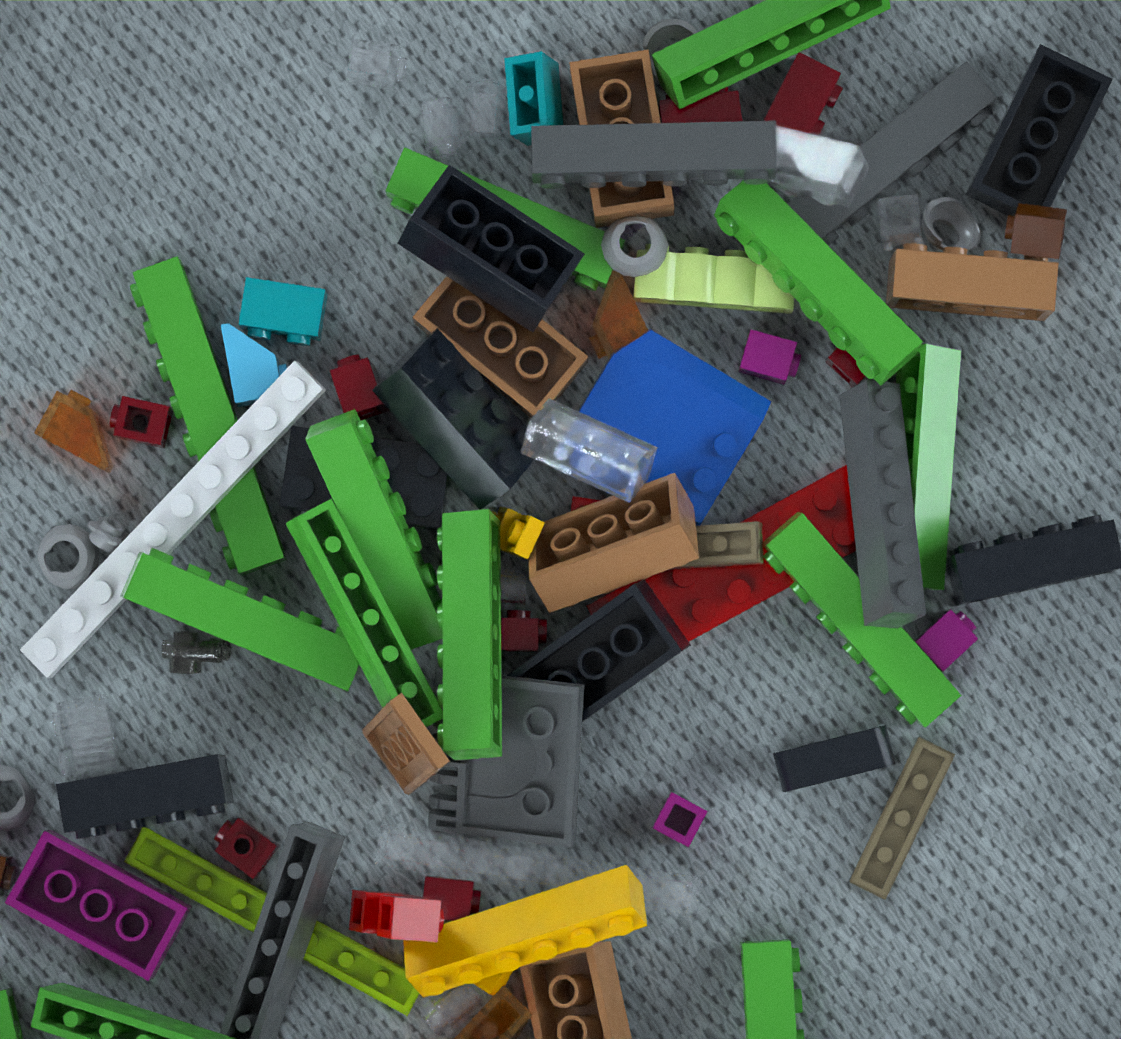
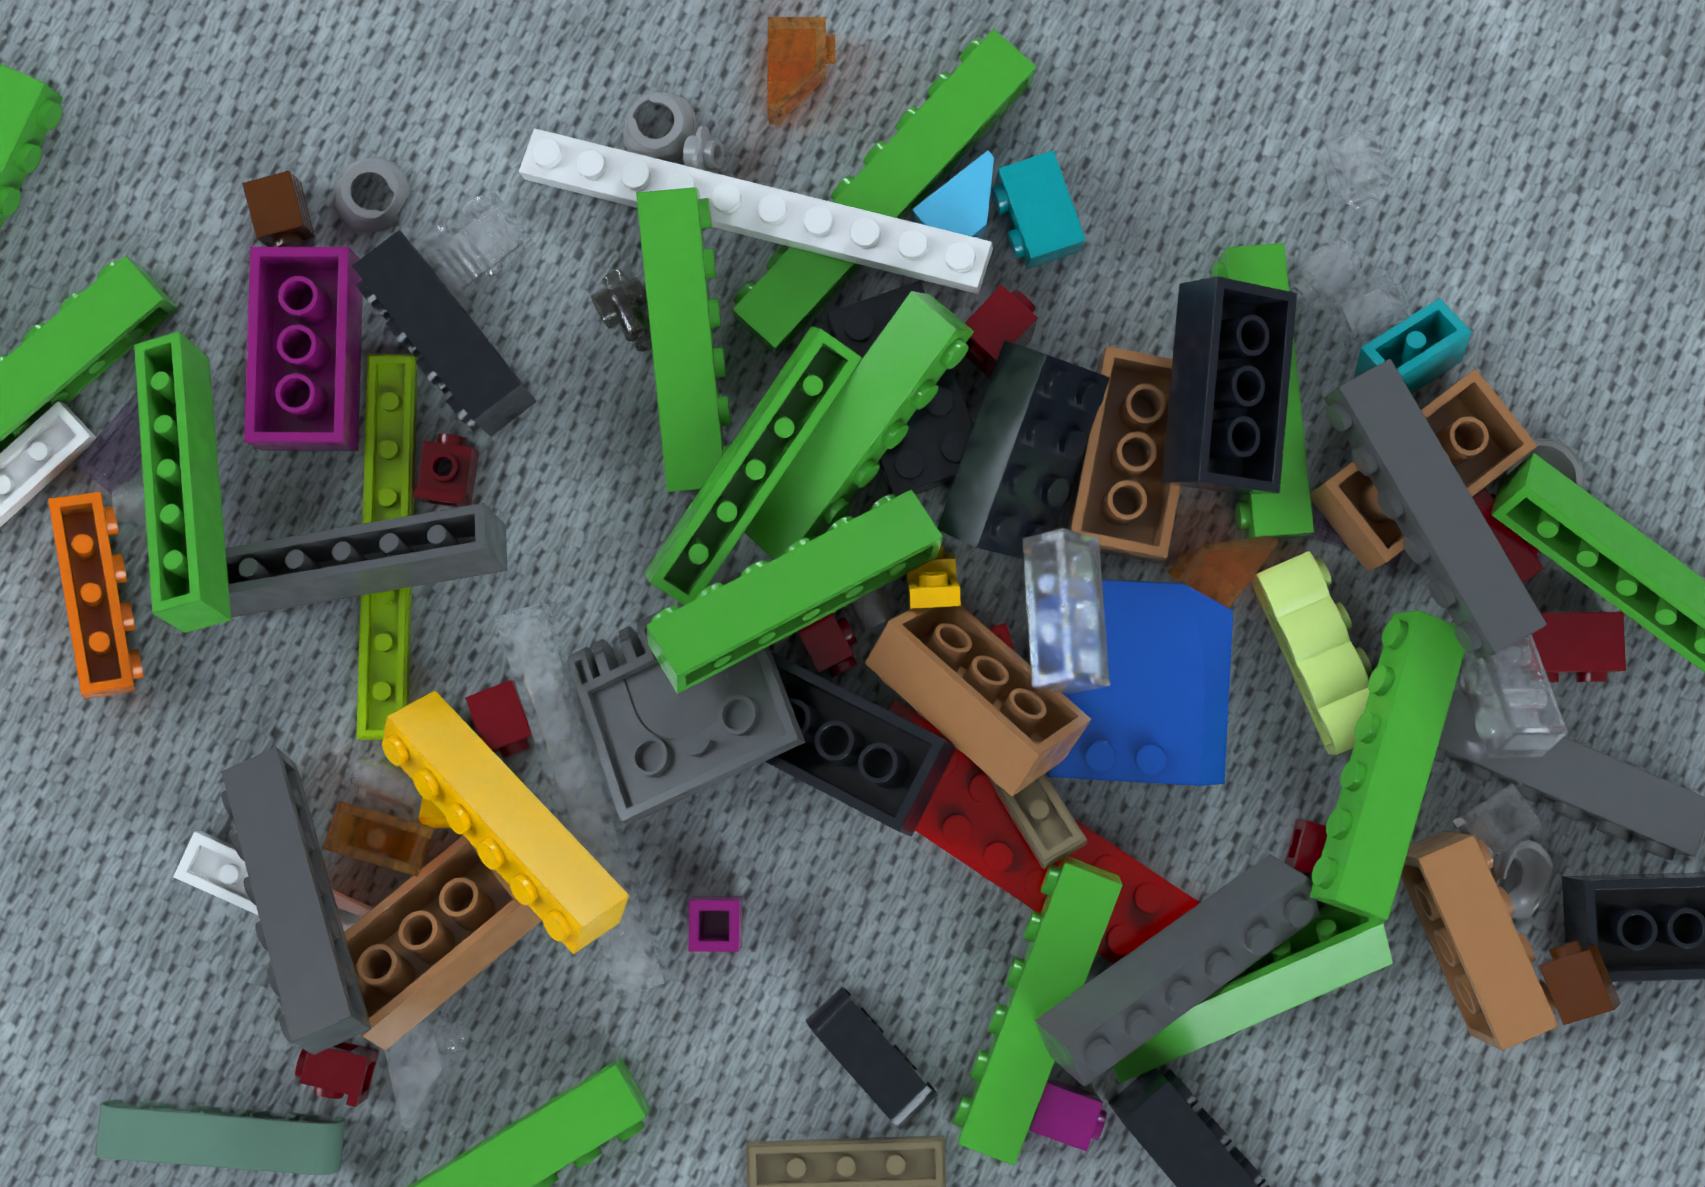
camera: 60 degrees right, 0 degrees up
(158, 417) = (844, 106): dark red brick -> none
(396, 915) = (447, 671): red arch -> none
(404, 744) = (637, 580): medium nougat tile -> none
(629, 265) = (1290, 552): light grey piece -> none
(769, 357) = (1270, 756): magenta brick -> none

